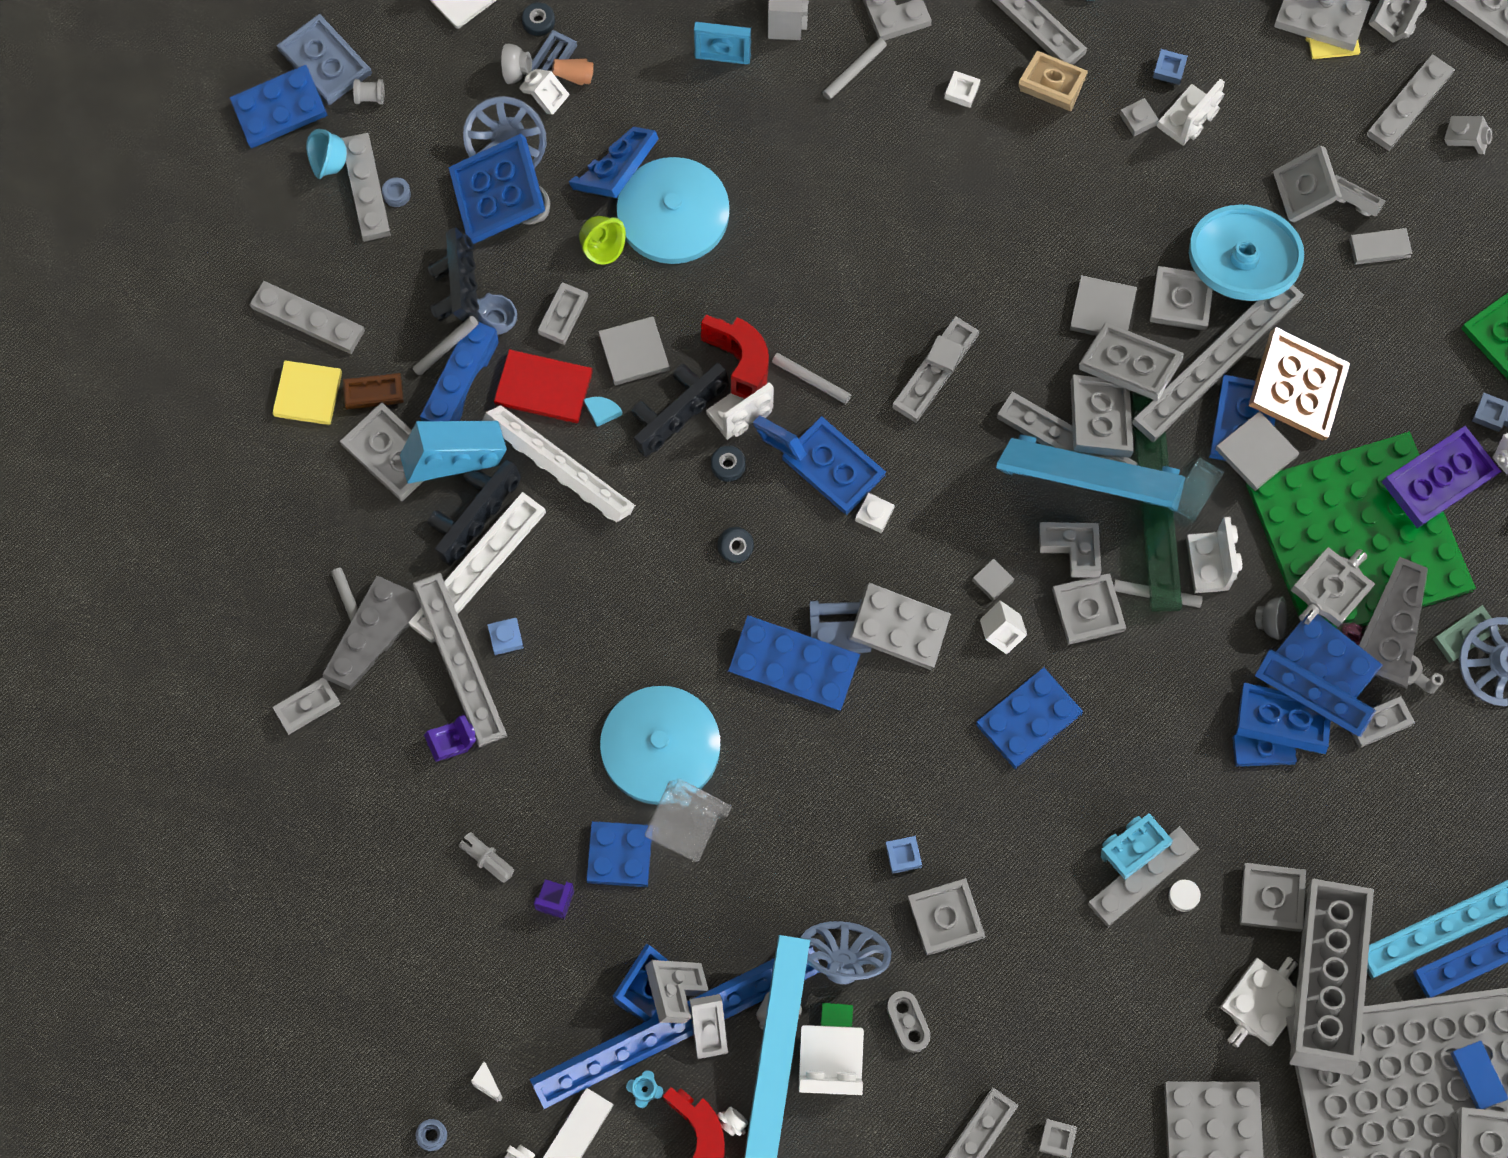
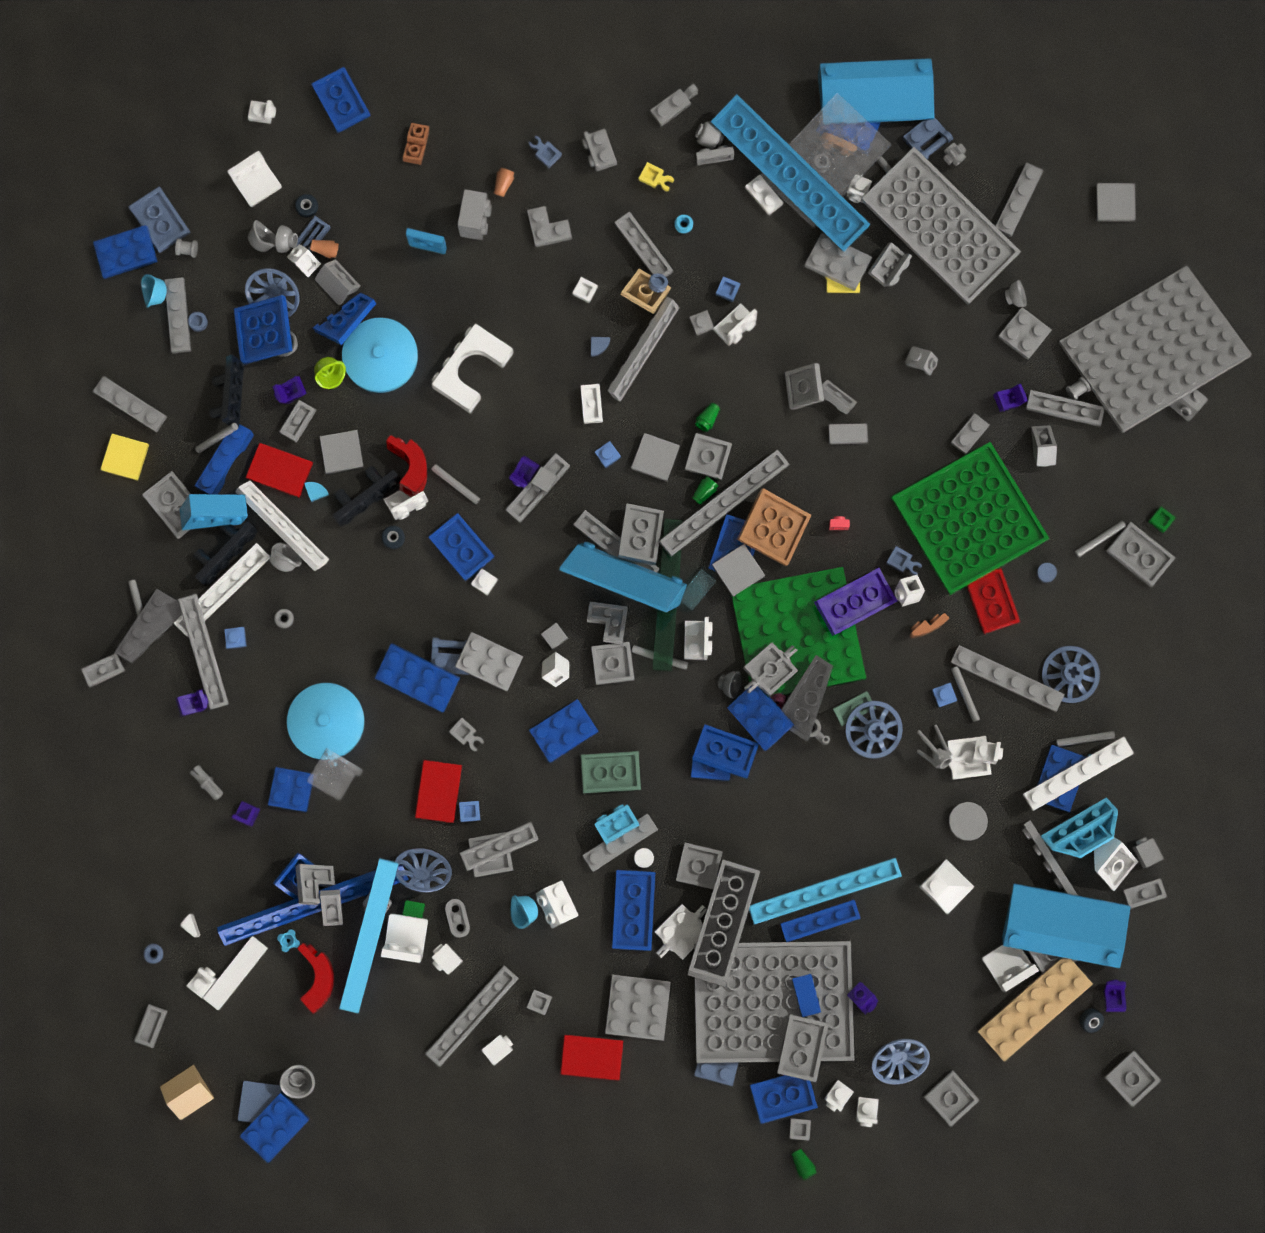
camera: 10 degrees right, 10 degrees up
(373, 390) = (167, 461): reddish brown plate -> none
(477, 66) = (261, 237): none -> light grey helmet
(497, 312) = (253, 417): sand blue hair -> none
(546, 271) = (289, 390): none -> dark purple bracket
(567, 508) = (284, 557): none -> light grey helmet
(577, 590) = (284, 612): none -> light grey plate
(595, 116) = (336, 281): none -> light grey panel
(725, 544) = (386, 588): black wheel -> none
(733, 1121) = (340, 968): white plate -> none
(779, 438) = (431, 531): blue tile -> none
(815, 176) = (476, 342): none -> white arch
(850, 830) = (438, 791): none -> red tile
(854, 68) = (513, 267): light grey bar -> none
(878, 736) = (465, 732): none -> light grey plate
(900, 1087) = (446, 958): none -> white brick
(912, 348) = (524, 472): none -> dark purple bracket
(958, 901) = (499, 846): none -> light grey tile
(994, 163) = (599, 345): none -> sand blue tile
(997, 243) = (591, 403): none -> white plate
(1010, 997) = (523, 911): none -> medium azure helmet
(1031, 312) = (607, 454): none -> medium blue plate
(1060, 982) = (556, 904): none -> white bracket
(1061, 159) = (643, 349): none -> light grey plate
(1069, 65) = (658, 283): none -> sand blue tile
(1111, 772) = (610, 772): none -> sand green tile
(1131, 361) = (665, 499): light grey tile -> none
(1170, 246) = (707, 418): none -> green cone
(1183, 977) = (633, 910): none -> blue plate
(1188, 341) = (705, 490): none -> green cone
(1246, 252) = (755, 430): medium azure dish -> none
(1315, 693) = (747, 738): blue plate -> none
(1387, 720) = (787, 760): light grey plate -> none
(1393, 371) = (839, 523): none -> coral plate
(1410, 102) = (887, 332): light grey plate -> none

